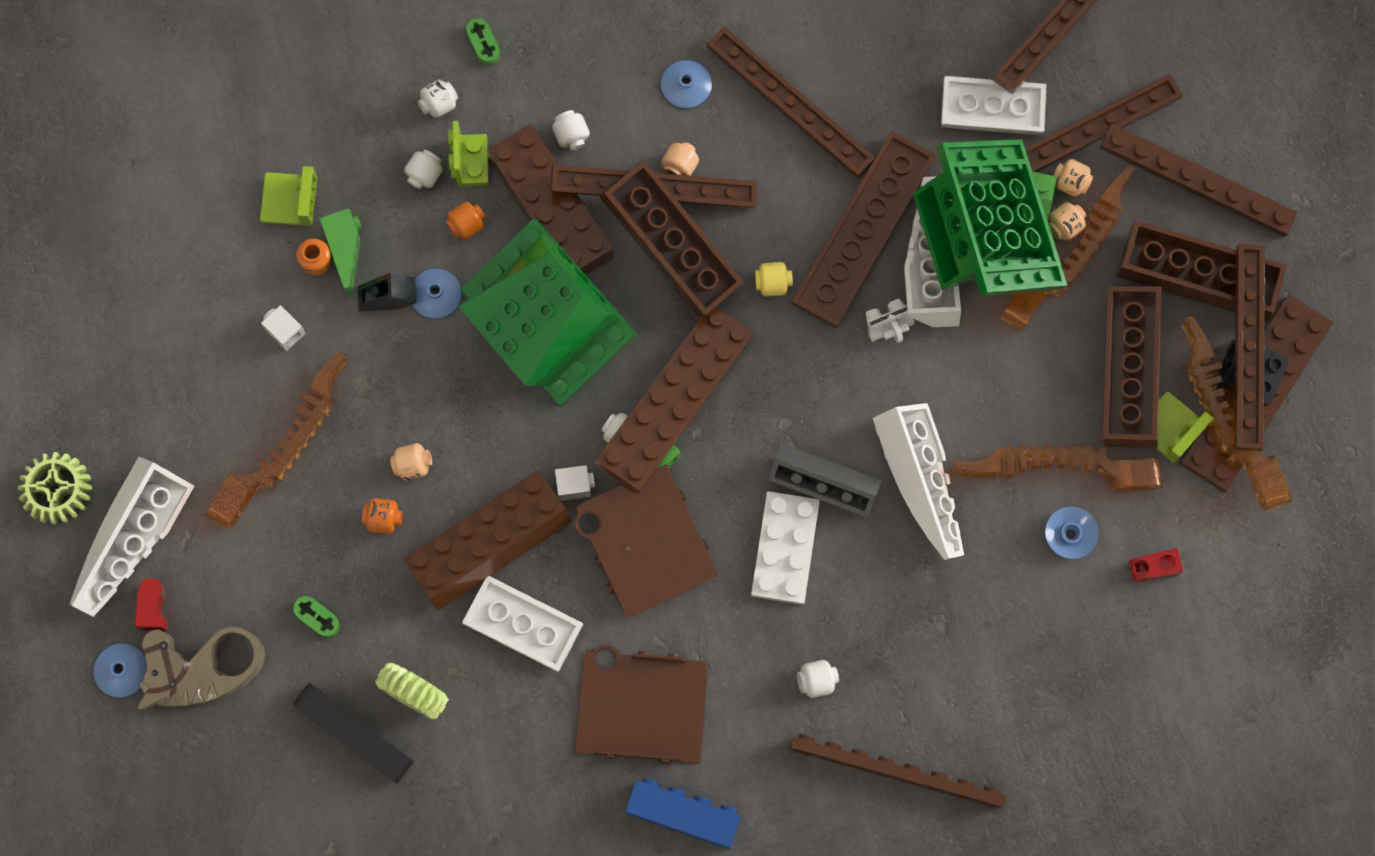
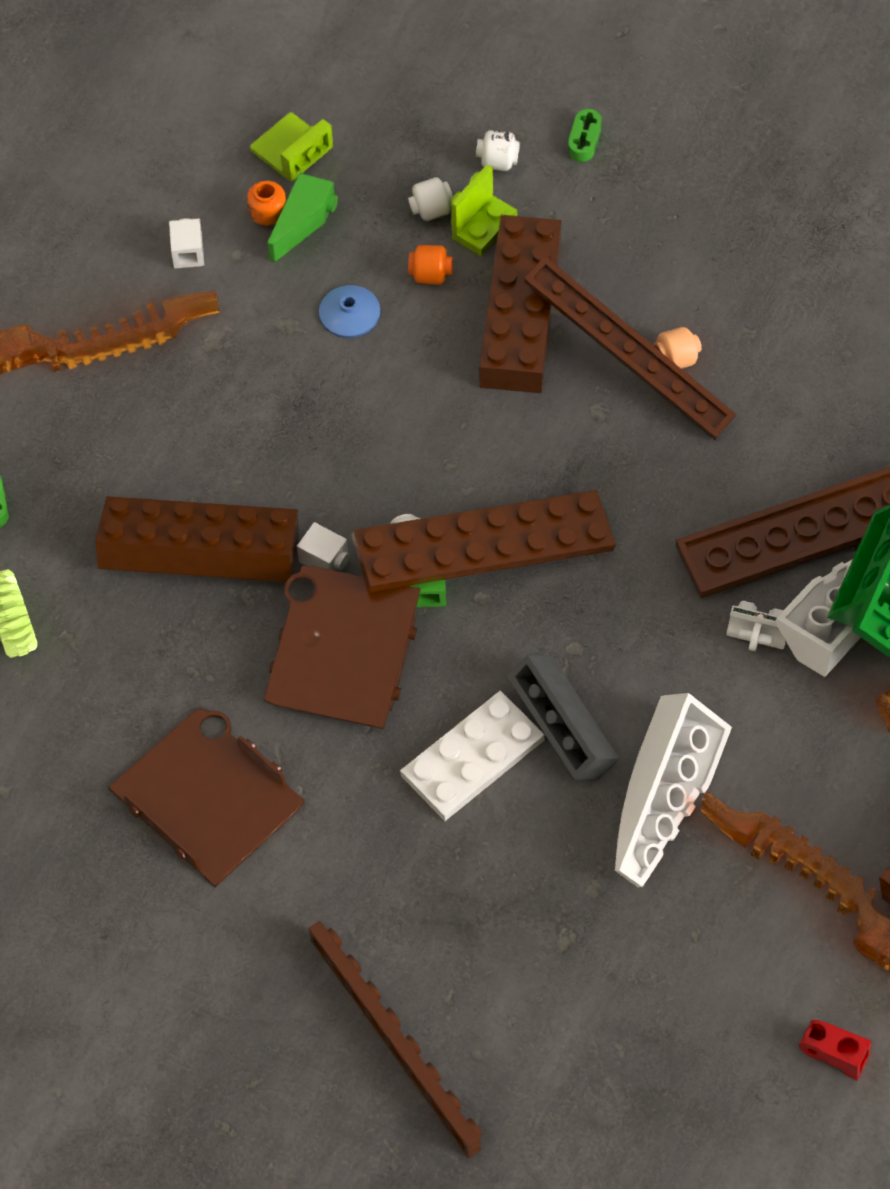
camera: 45 degrees right, 15 degrees down
(381, 516) = (125, 453): orange head -> none
(387, 293) = (305, 277): black slope -> none
(411, 461) = (193, 428): light nougat head -> none
(522, 623) = (165, 638): white plate -> none
(544, 314) = (423, 386): green wedge -> none
(570, 130) = (597, 255): white head -> none
(671, 239) = (602, 397): reddish brown brick -> none
(683, 814) = (155, 915): blue brick -> none
(686, 95) = (743, 303): medium blue dish -> none
(773, 279) = (674, 508): light yellow head -> none
(790, 102) = (833, 372): reddish brown plate -> none
(817, 678) = (393, 891): white head -> none
(1078, 522) = (775, 935): medium blue dish -> none

